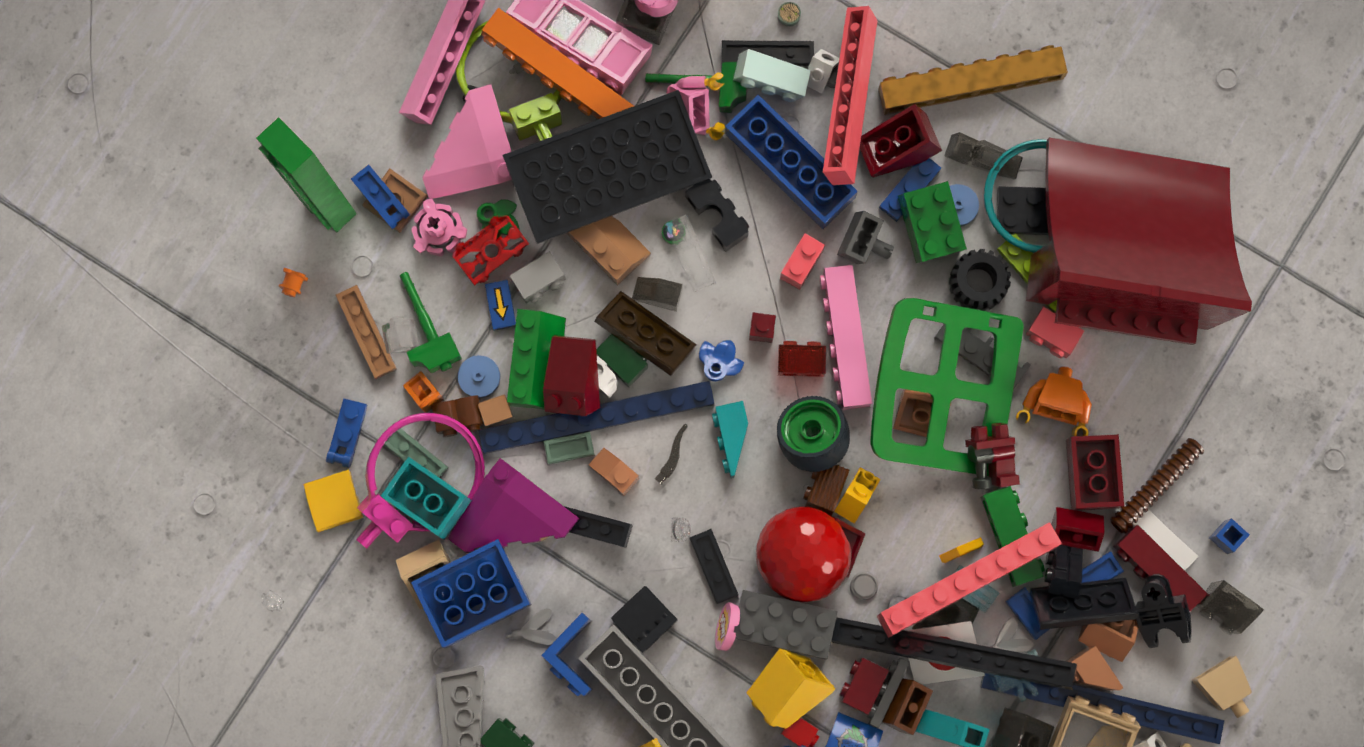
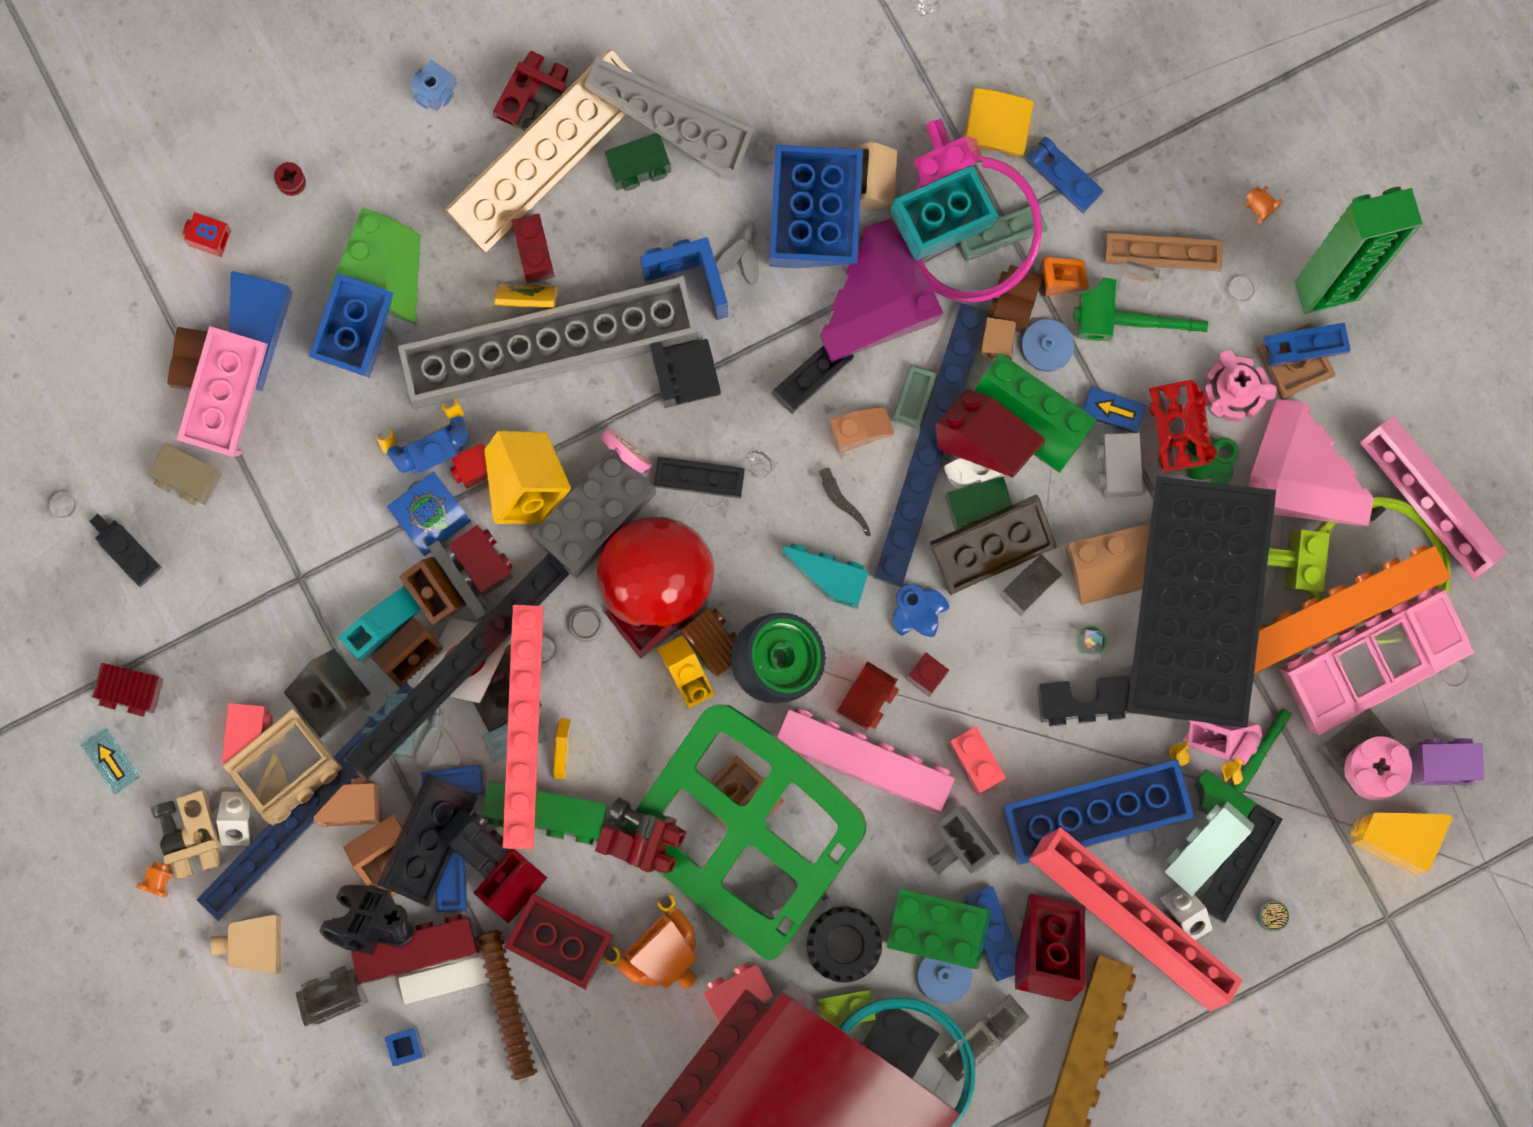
camera: 115 degrees right, 0 degrees up
(961, 698) = (407, 652): none -> reddish brown brick

